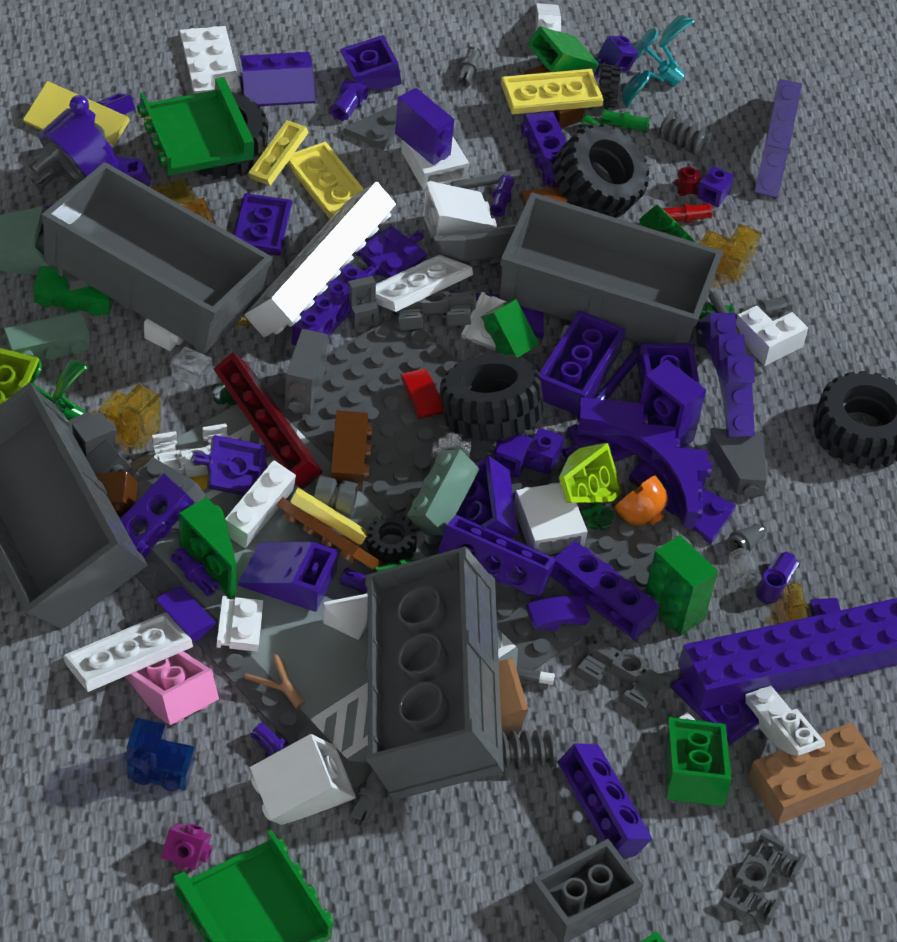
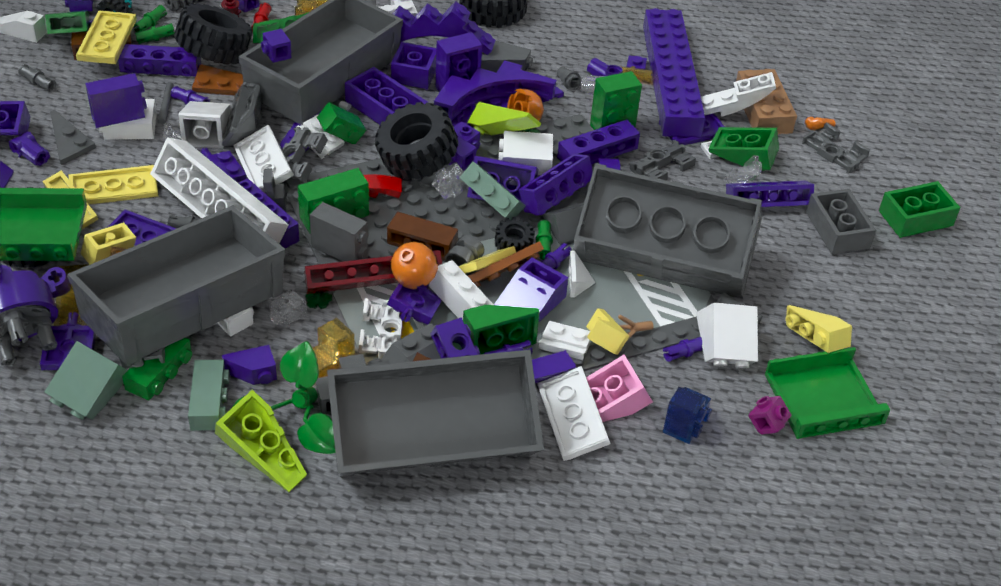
camera: 70 degrees left, 5 degrees down
(102, 363) = (252, 365): none -> dark purple slope
(221, 199) = (99, 243): none -> light yellow brick
(253, 653) = (606, 332): none -> light yellow slope
(265, 437) = (414, 265): none -> orange cylinder
(341, 886) = (821, 329): none -> light yellow slope
(361, 353) = (343, 191): none -> green brick
(557, 214) = (276, 45): none -> dark purple brick
(627, 760) = (745, 174): none -> clear bracket
(807, 846) = (818, 123): none -> orange arm

